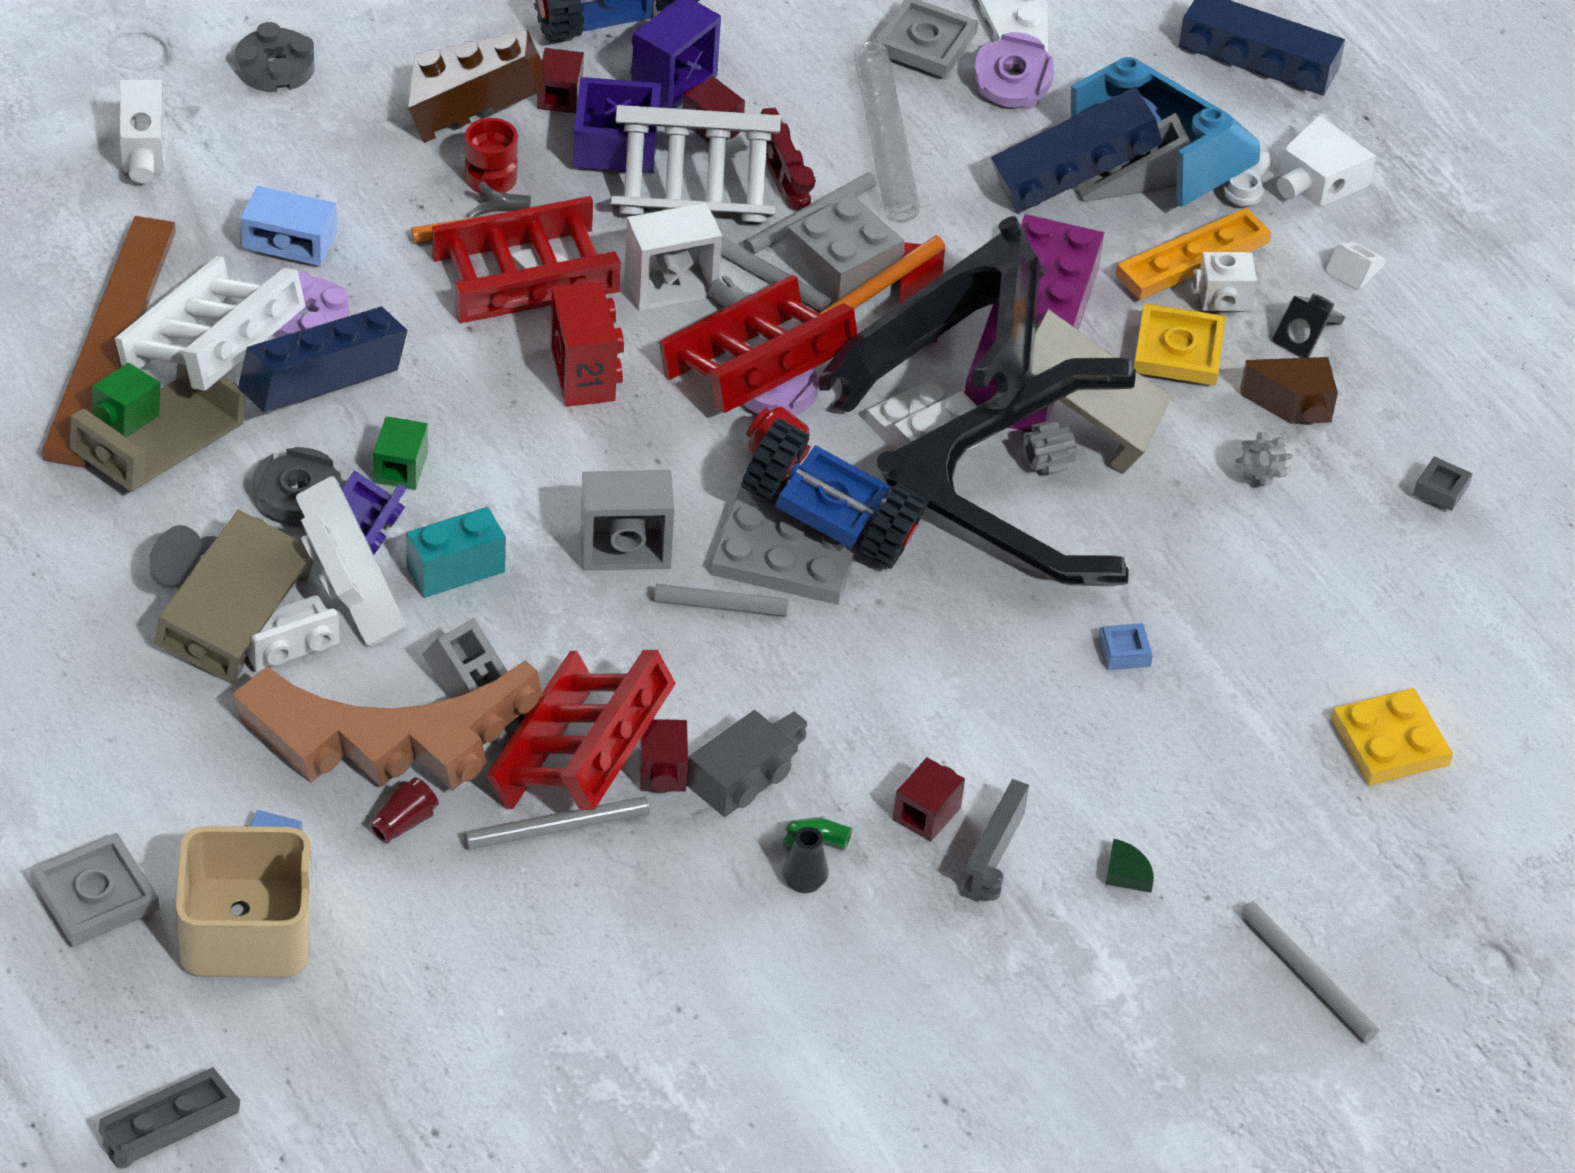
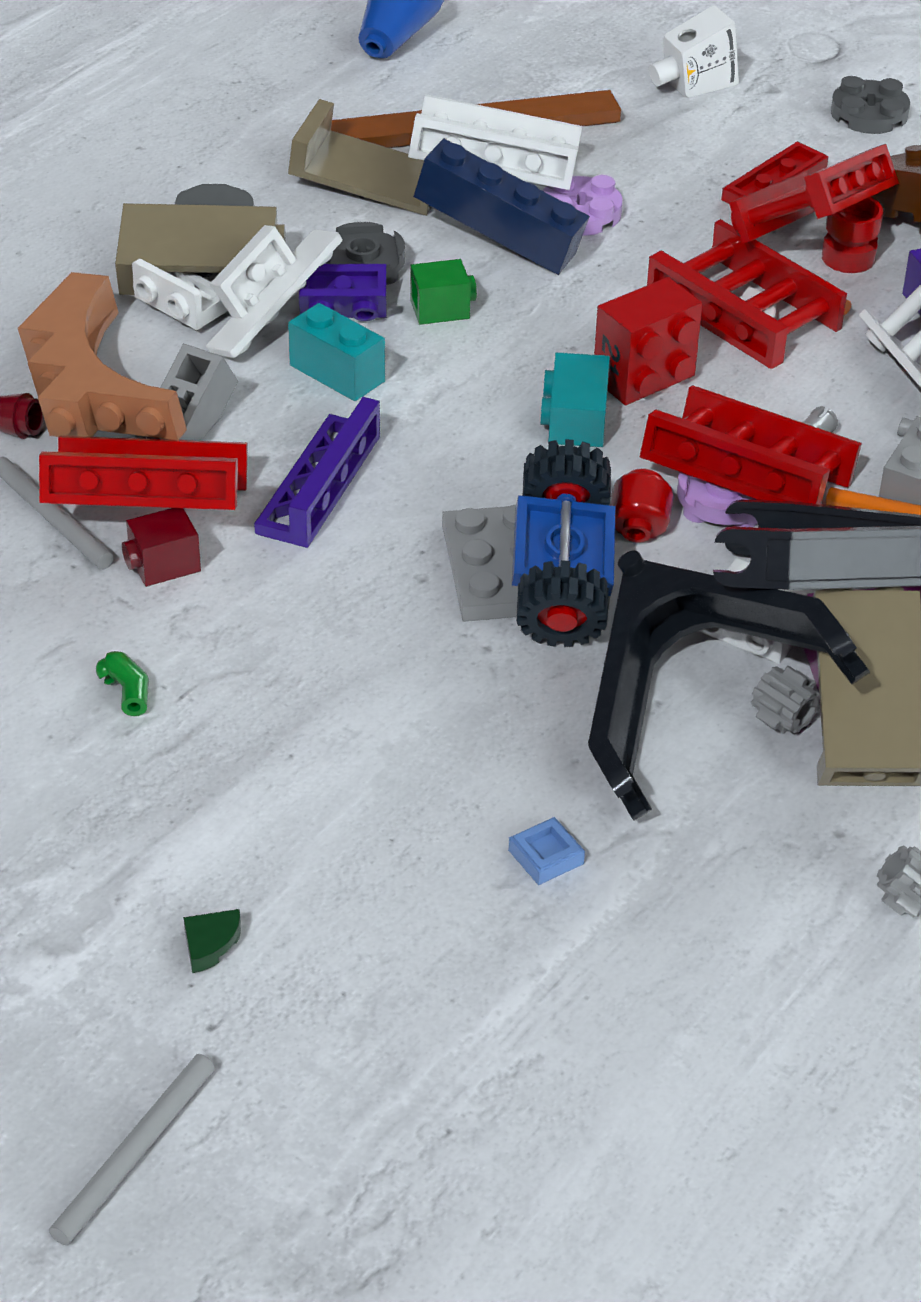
camera: 70 degrees right, 5 degrees down
(126, 399) = (372, 130): green brick -> none
(288, 225) = (661, 156): light blue brick -> none
(347, 169) = (785, 164): none -> red tile
(476, 114) = (819, 192): none -> red fence
(498, 201) = (812, 261): dark grey bar -> none
(614, 421) = (576, 398): none -> teal brick
(618, 607) = (325, 483): none -> dark purple fence
(627, 520) = (437, 427): light grey brick -> none
(672, 255) = (812, 359): white brick -> none
(721, 600) = (406, 537): light grey bar -> none
(744, 760) = (189, 600): dark grey hinge -> none
(771, 273) = (880, 438): light grey bar -> none
(806, 862) = (71, 676): black cone -> none
(928, 799) = (211, 744): dark red brick -> none
(984, 878) = (178, 810): dark grey hinge -> none
(1391, 736) = (561, 1133): yellow plate -> none

